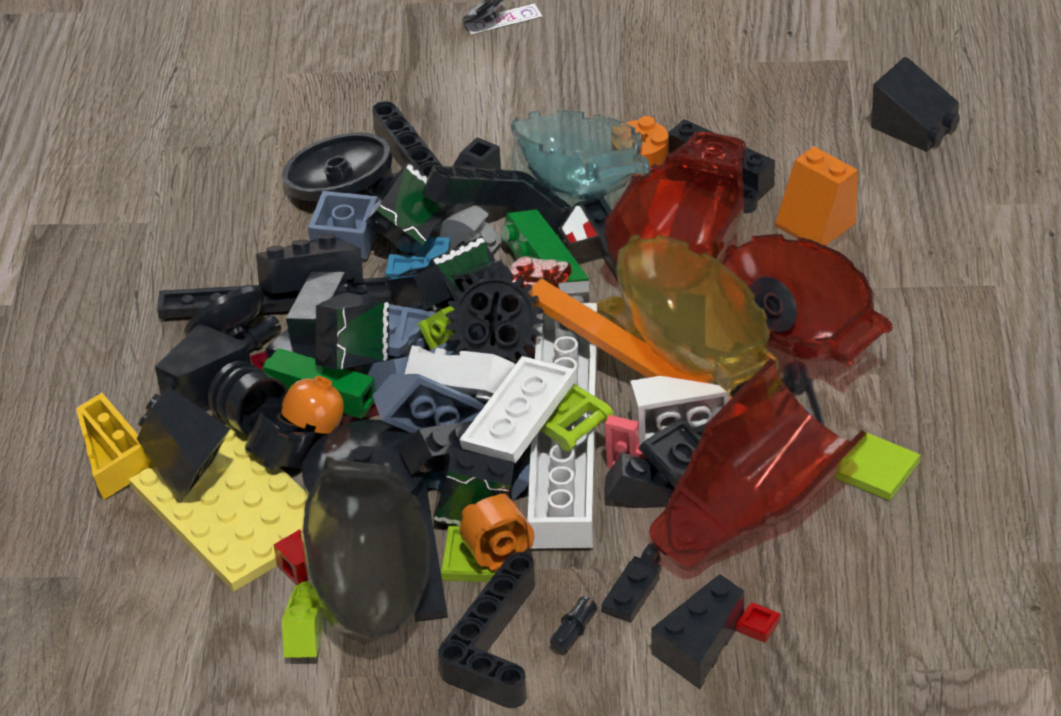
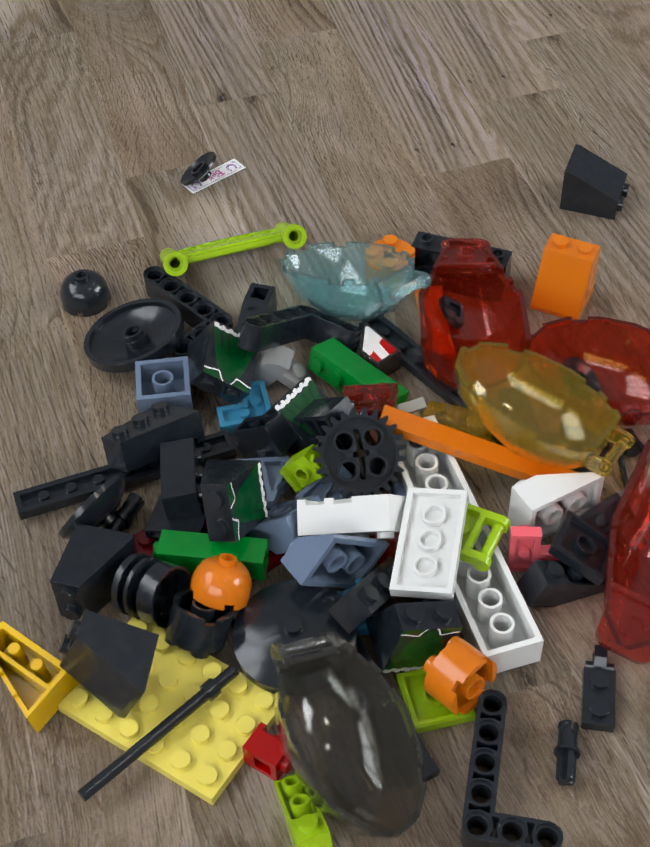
camera: 20 degrees left, 5 degrees up
(265, 494) = (208, 691): none -> black bar
(308, 115) = (84, 293): none -> black cylinder
(541, 97) = (176, 261): none -> lime piece
(677, 208) = (452, 311): none -> black tile

